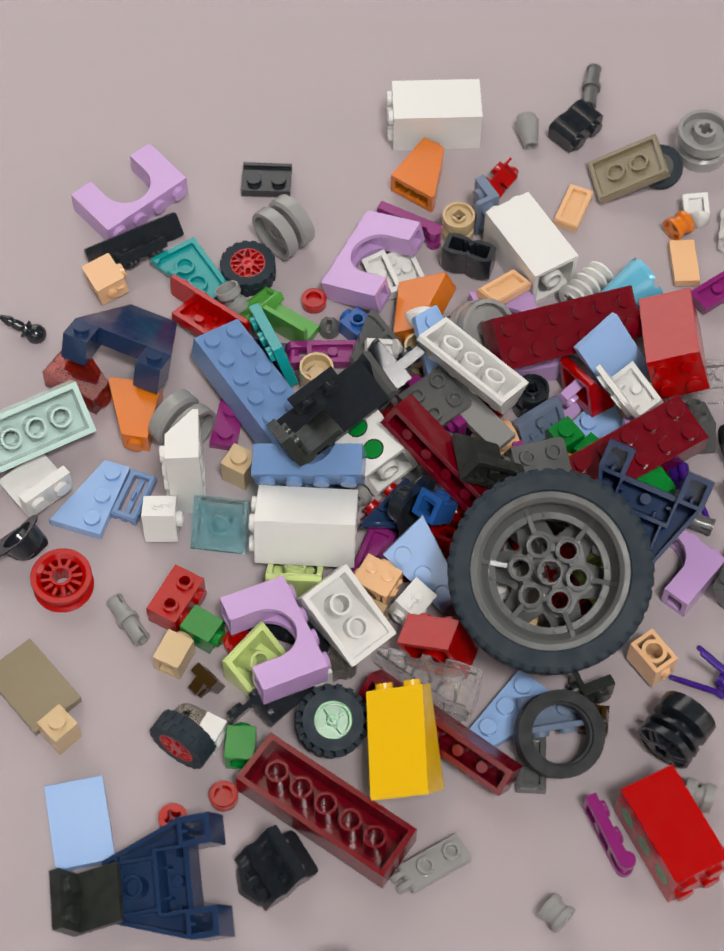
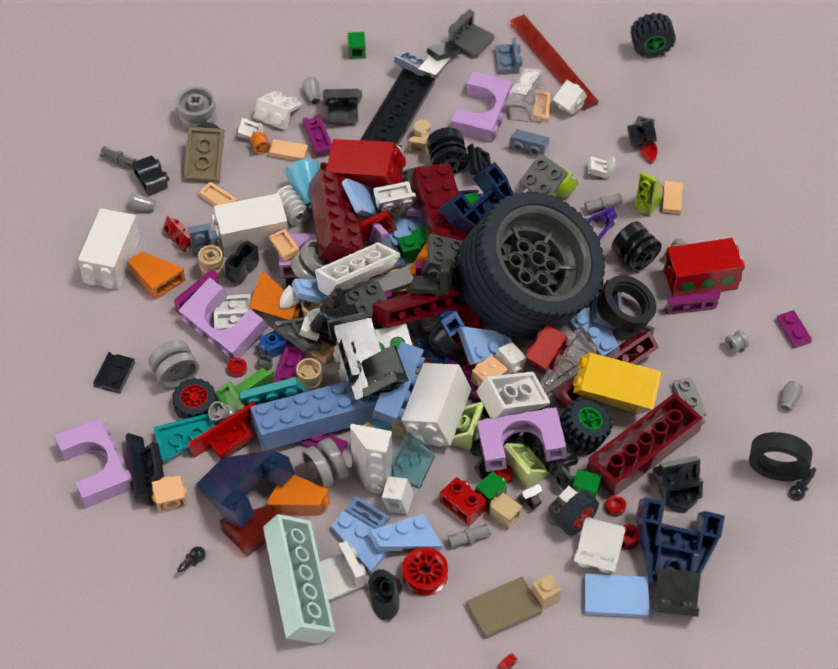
camera: 75 degrees left, 5 degrees down
(109, 547) = (405, 534): none -> light blue wing
(138, 783) = (600, 545): none -> white bracket

